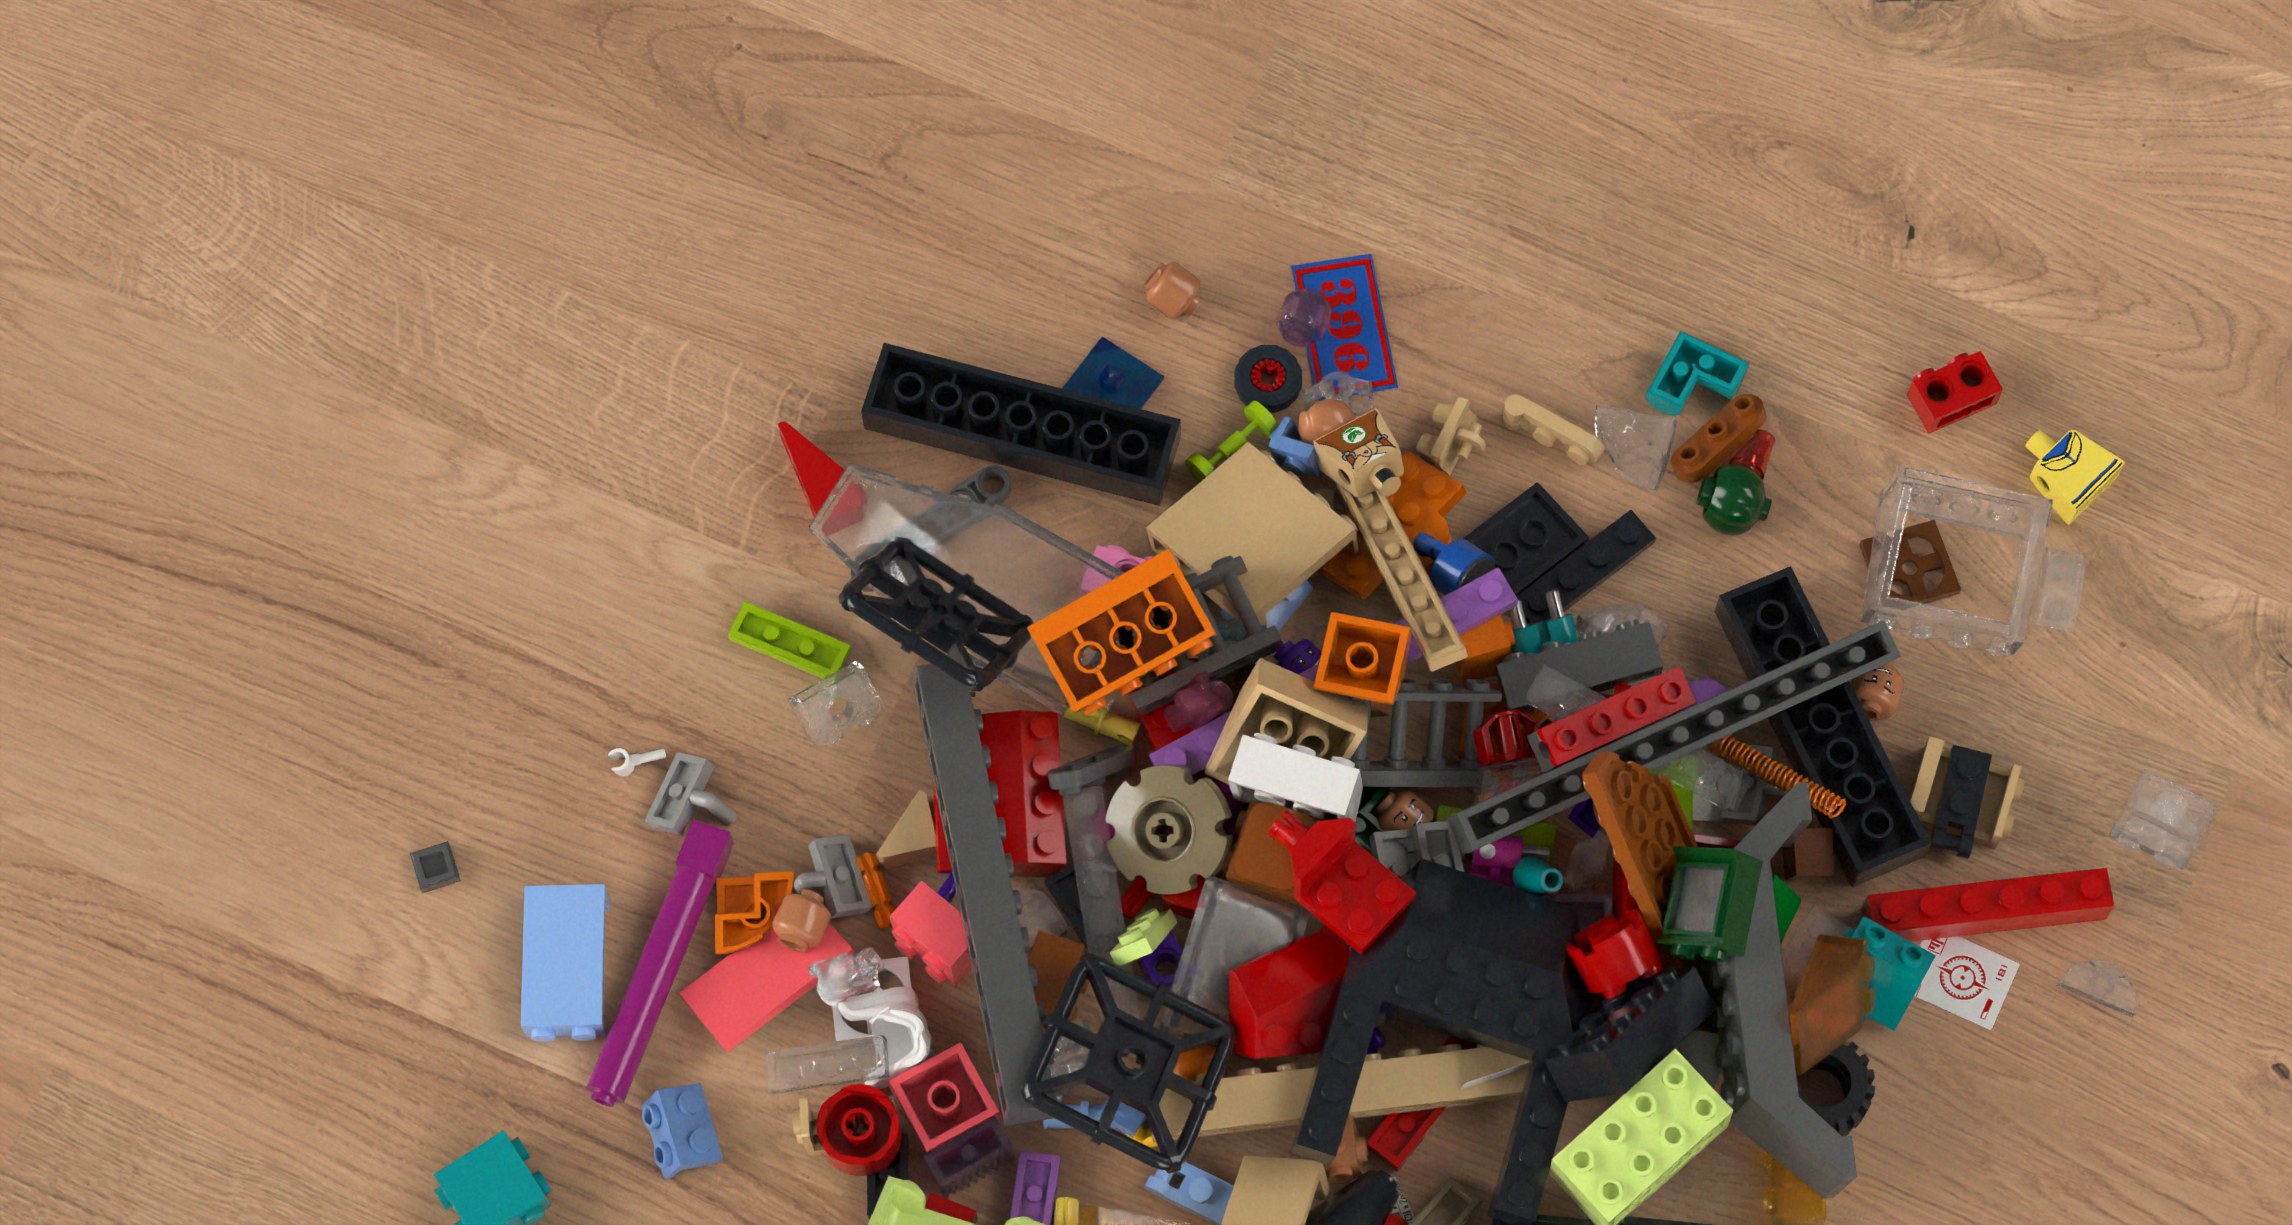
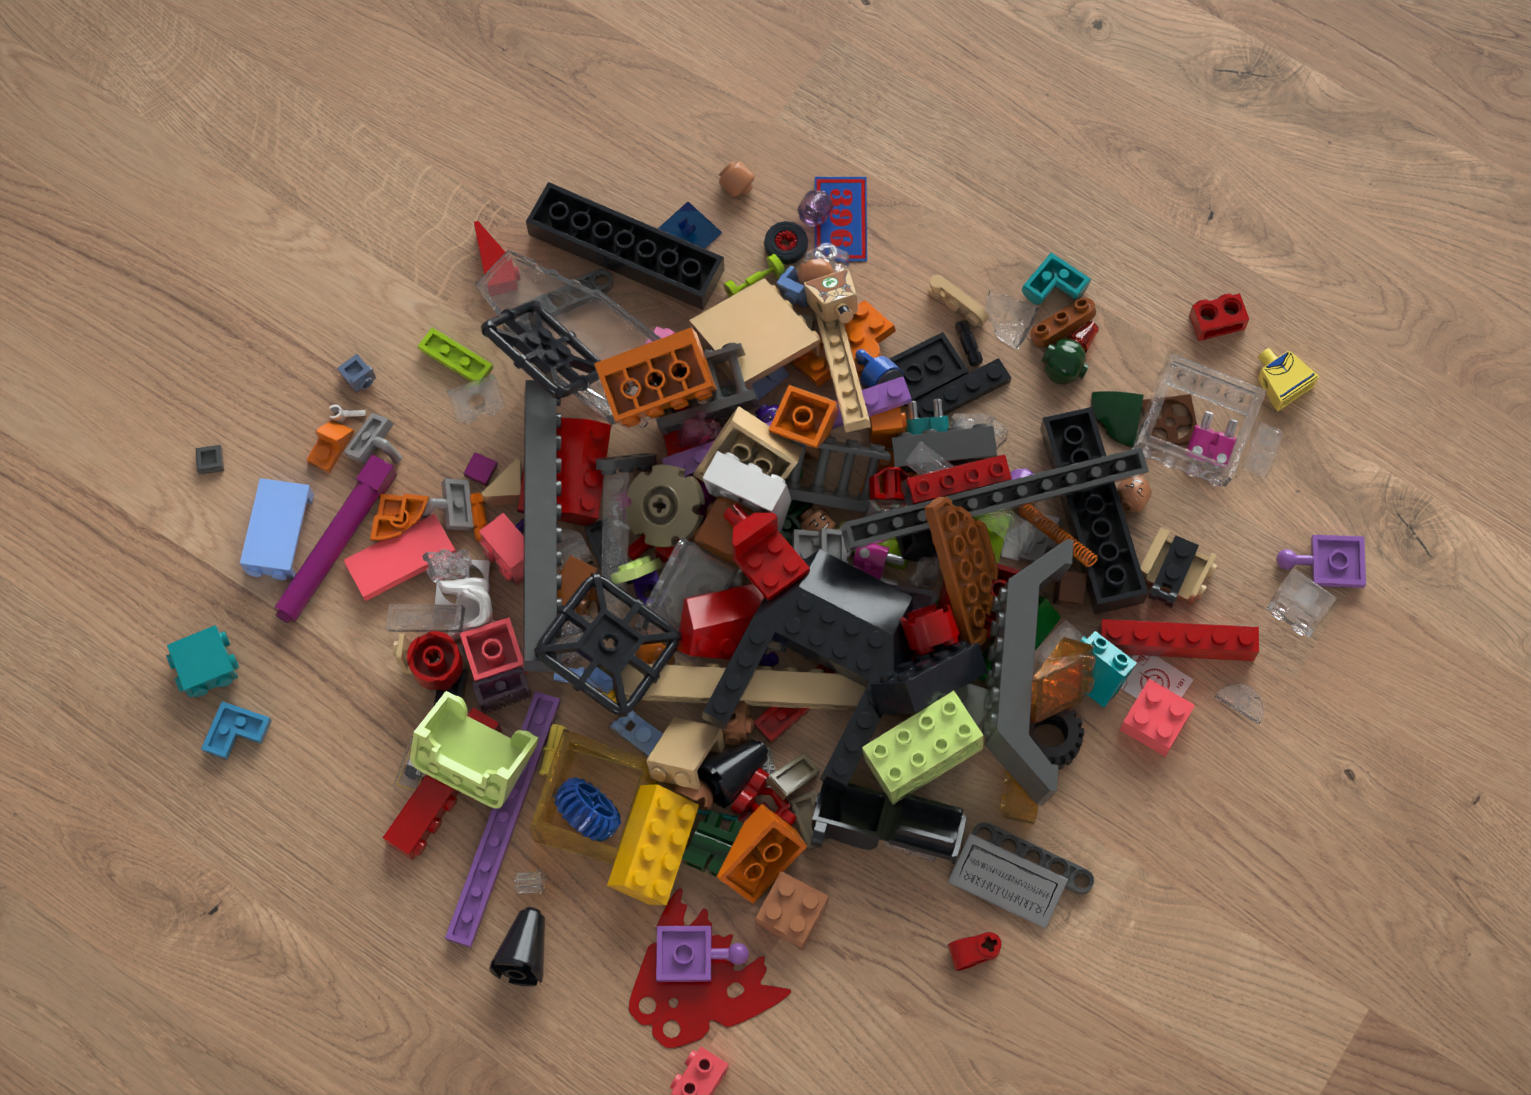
camera: 10 degrees right, 0 degrees up
(620, 814) = (330, 445): none -> orange slope
(641, 693) = (357, 373): none -> sand blue bracket
(681, 1129) = (327, 643): medium blue bracket -> none
(801, 921) = (426, 527): nougat head -> none
(863, 813) = (480, 469): none -> magenta tile
(1108, 724) = (642, 437): light yellow axle -> none
(1456, 439) = (896, 296): tan hips -> none
(1496, 1075) = (843, 691): white sticker -> none
(1536, 876) = (891, 572): teal cone -> none
(1568, 827) = (916, 546): none -> black brick
(1580, 493) = (969, 343): none -> black axle
(1710, 903) = (995, 604): dark green window -> none
(1830, 568) = (1118, 413): none -> dark green brick
(1978, 1032) = (1157, 717): none -> coral brick
(1980, 593) = (1211, 443): none -> dark pink piece
(2199, 742) = (1334, 560): none -> medium lavender plate

